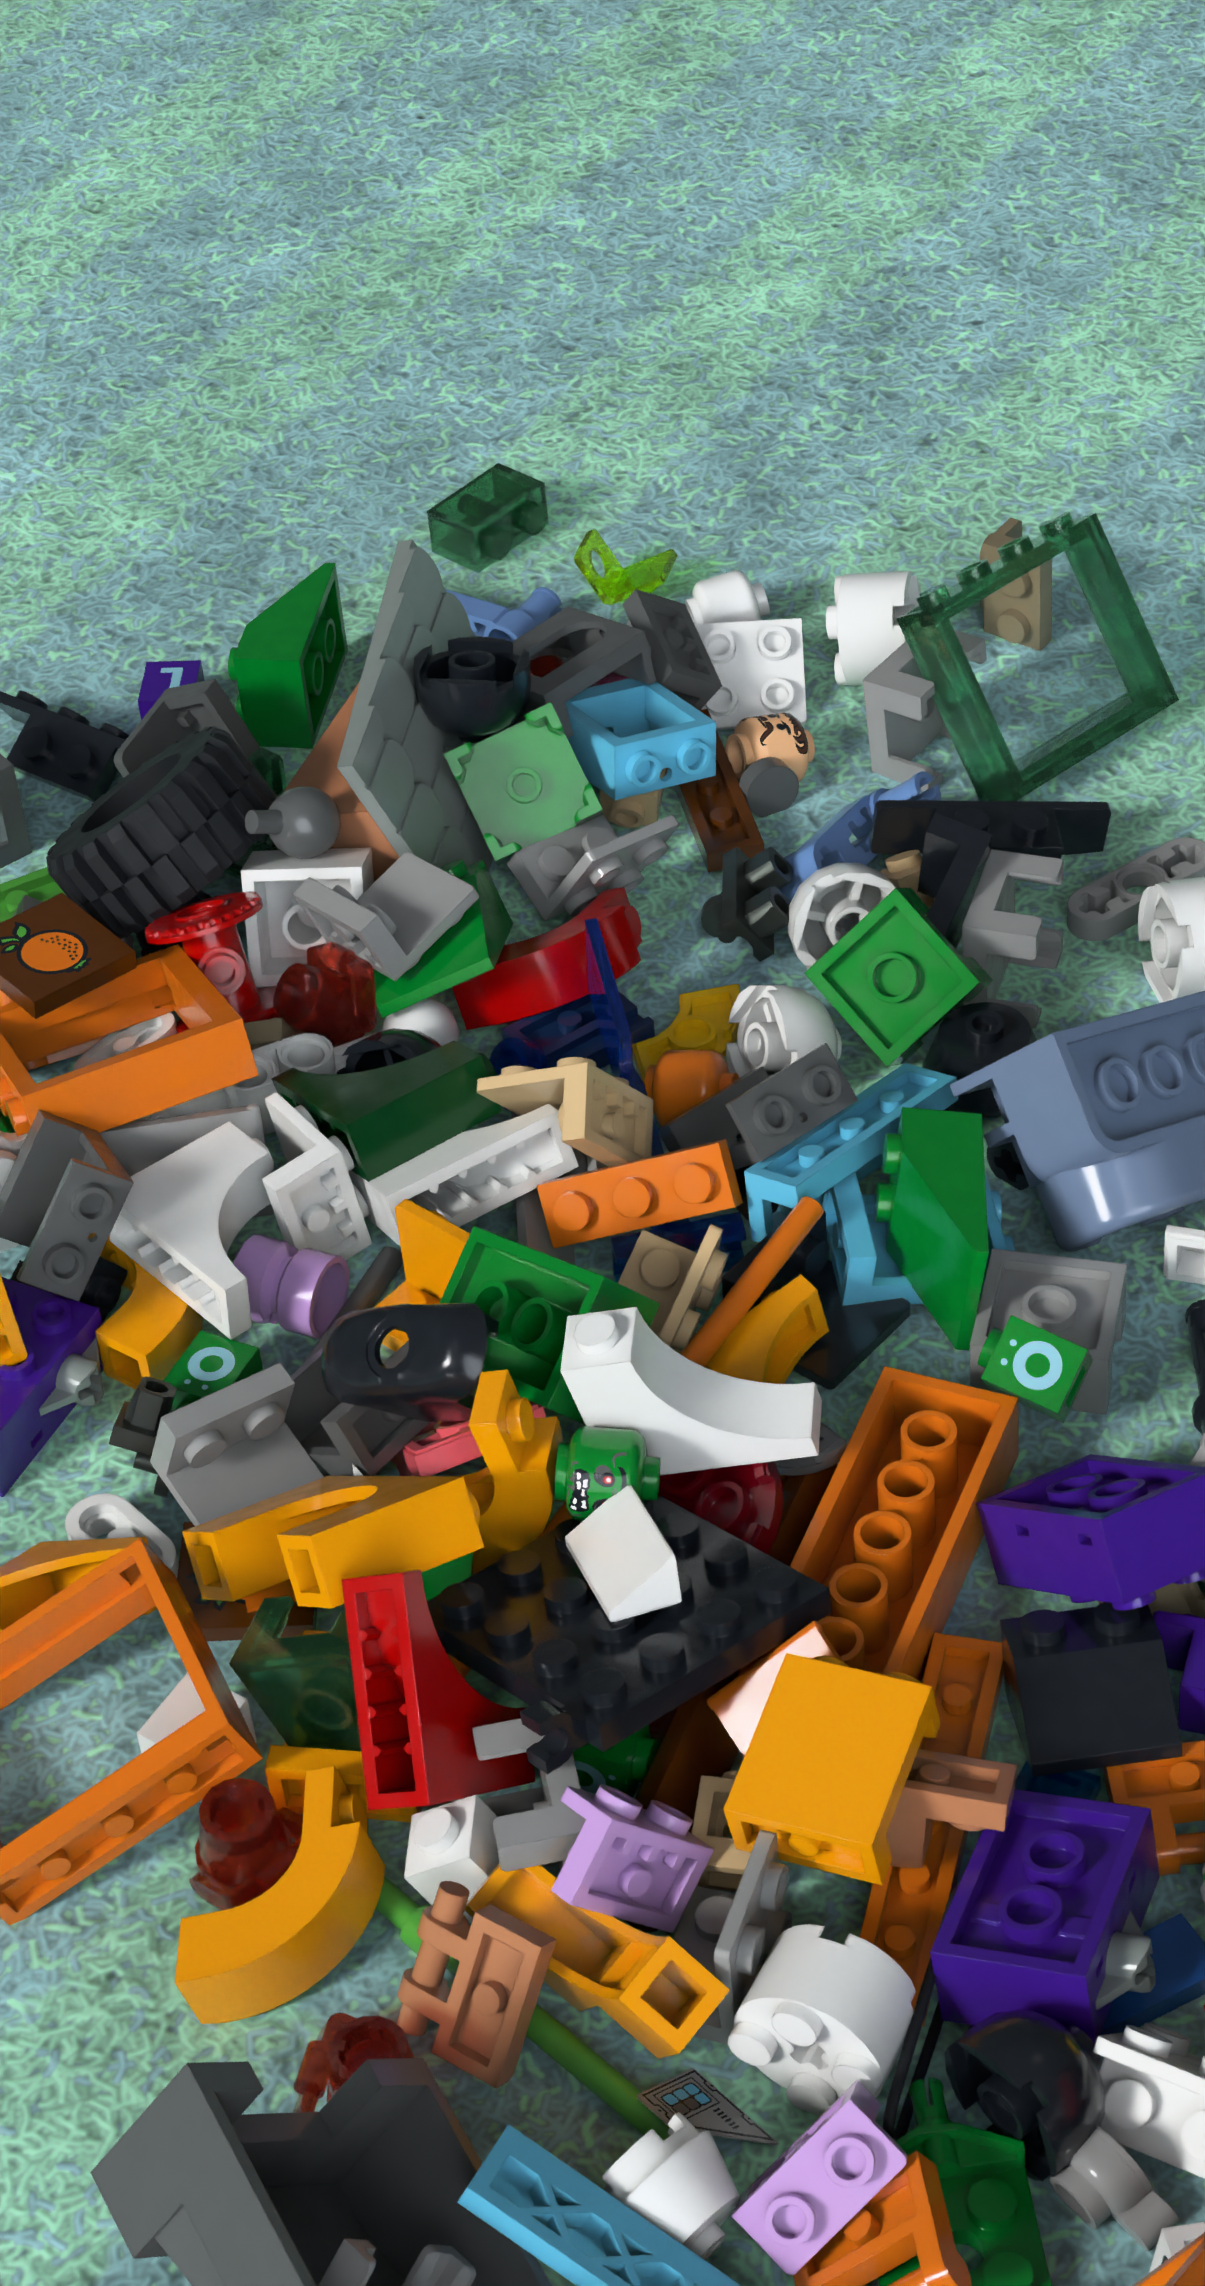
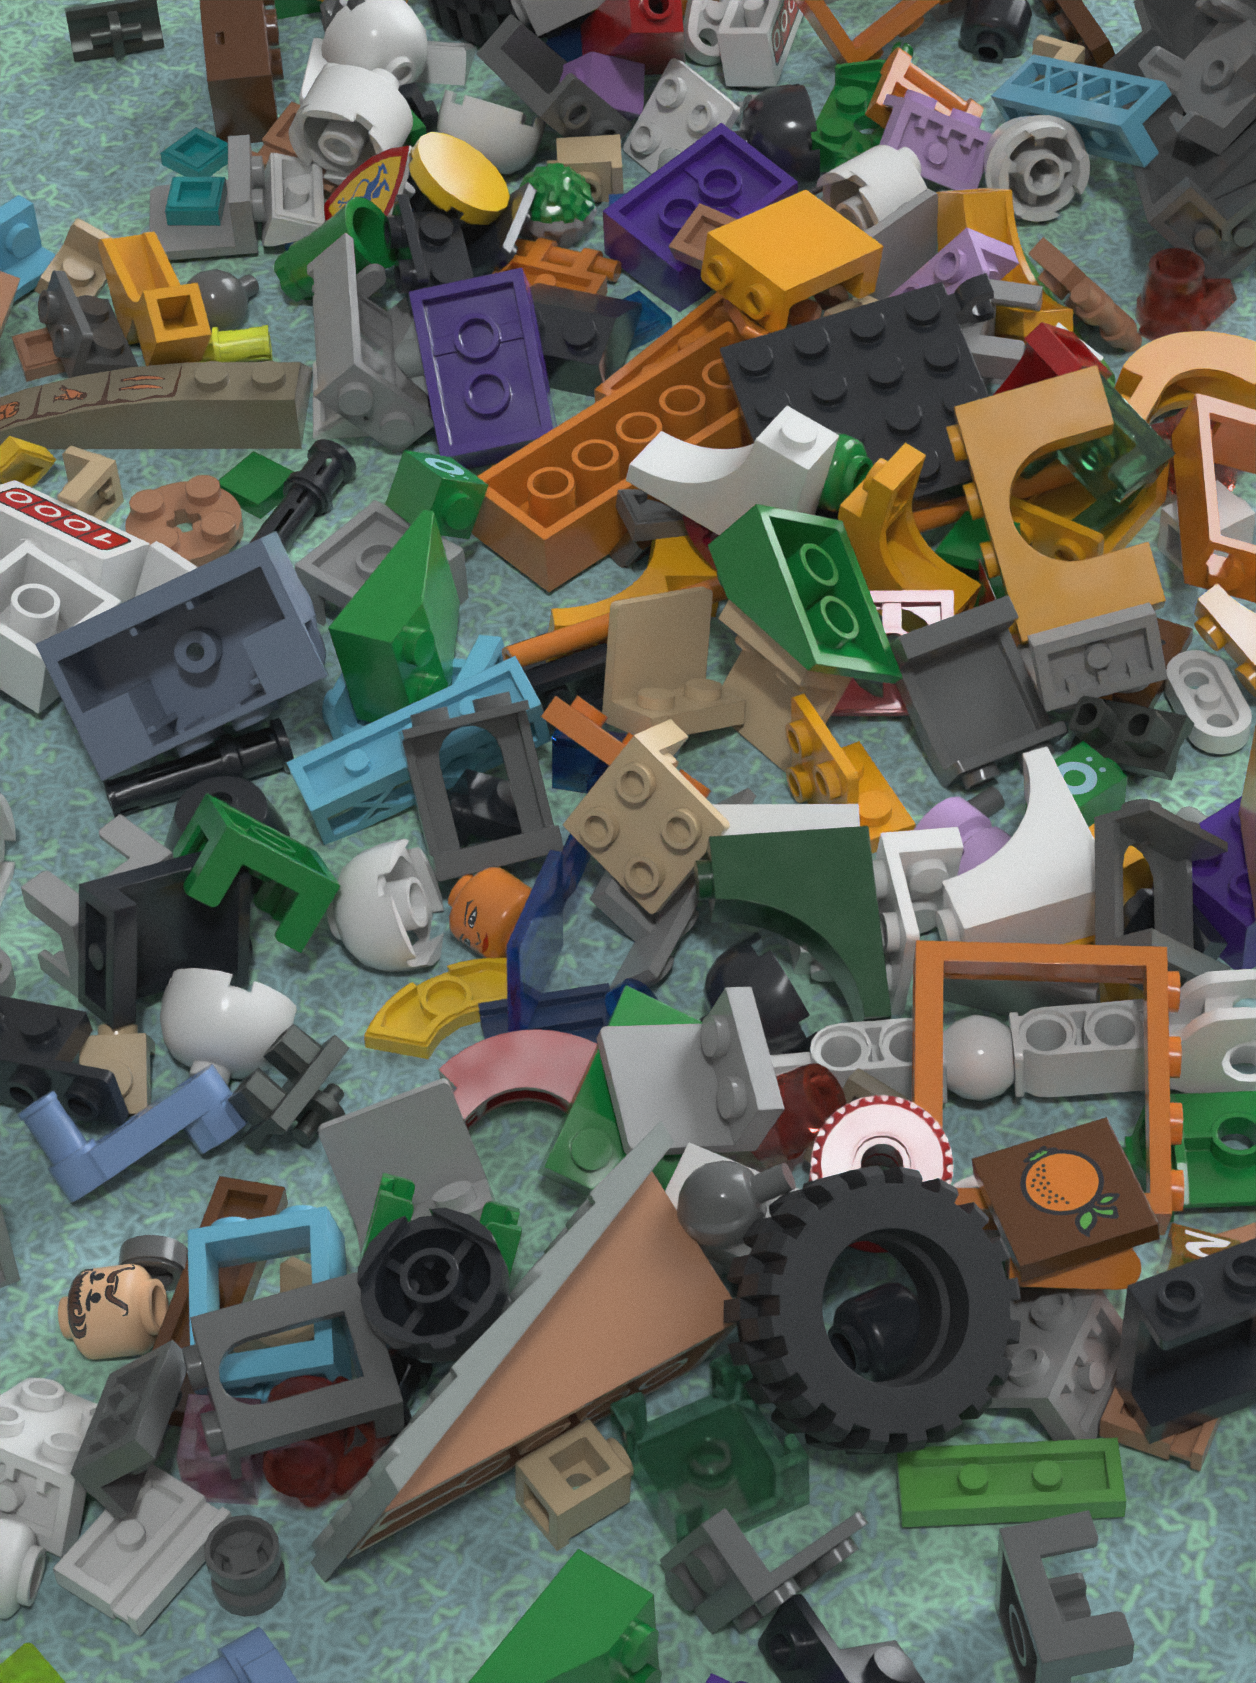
camera: 155 degrees left, 5 degrees up
(435, 1376) = (917, 572): black piece -> none
(625, 1558) = (855, 391): white slope -> none

